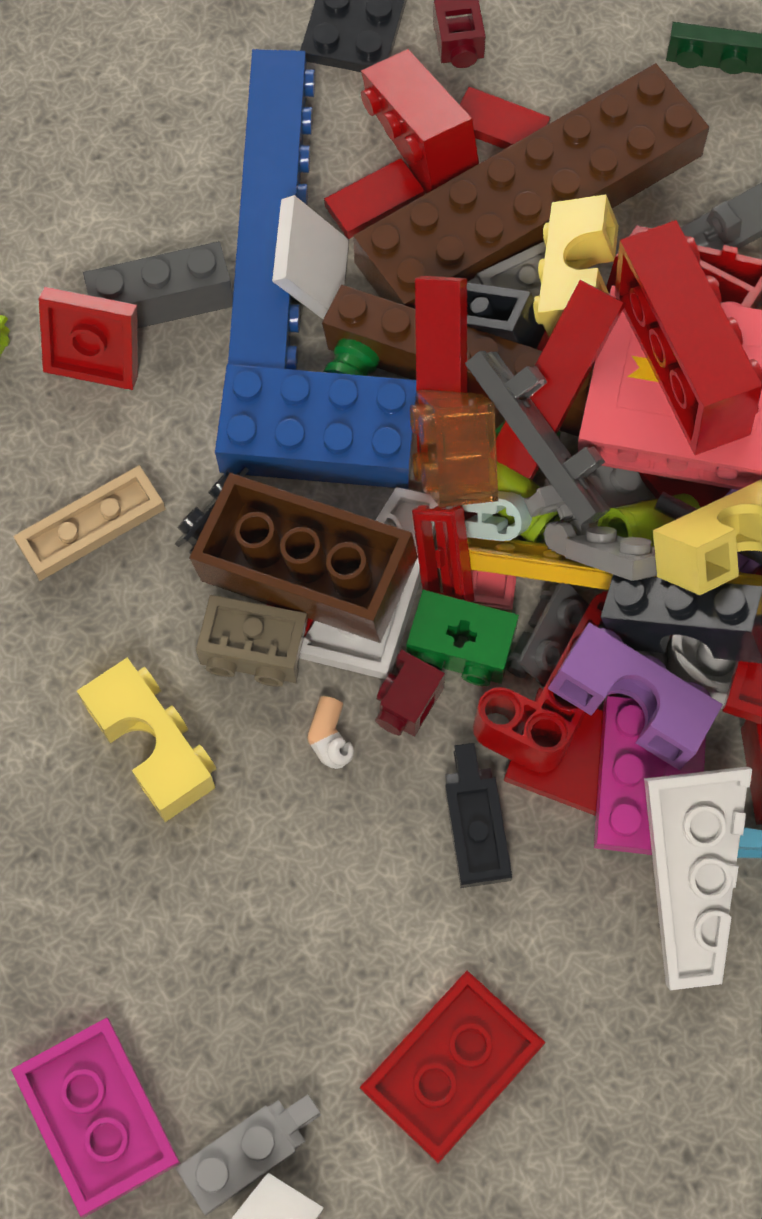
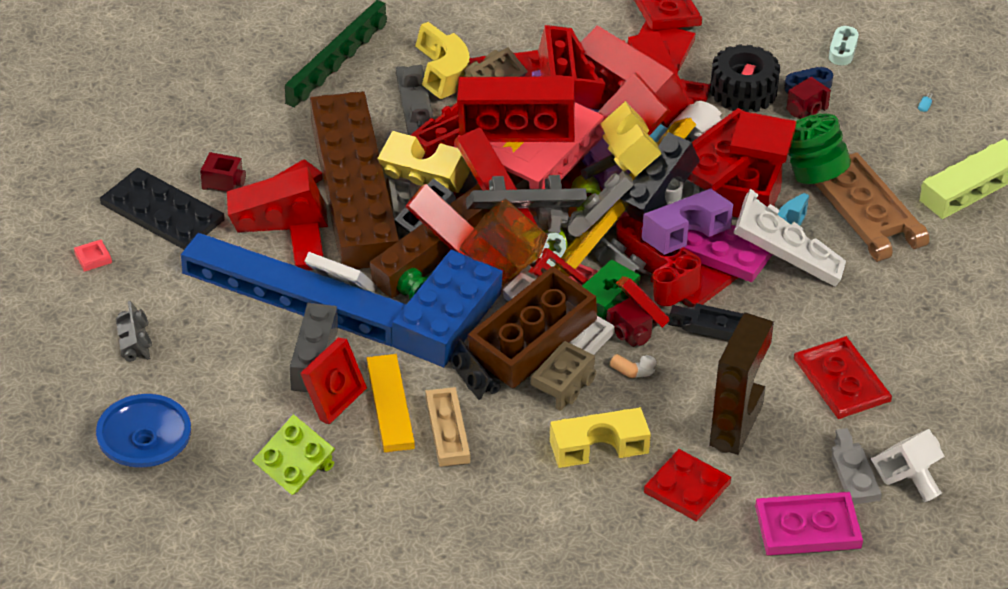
camera: 70 degrees left, 25 degrees down
(104, 69) = (133, 334): none -> dark grey hinge
(112, 430) = (390, 403): none -> yellow tile
(114, 902) = (687, 484): none -> red plate
(267, 908) = (736, 395): none -> dark brown arch
(443, 695) = (634, 292): none -> red tile

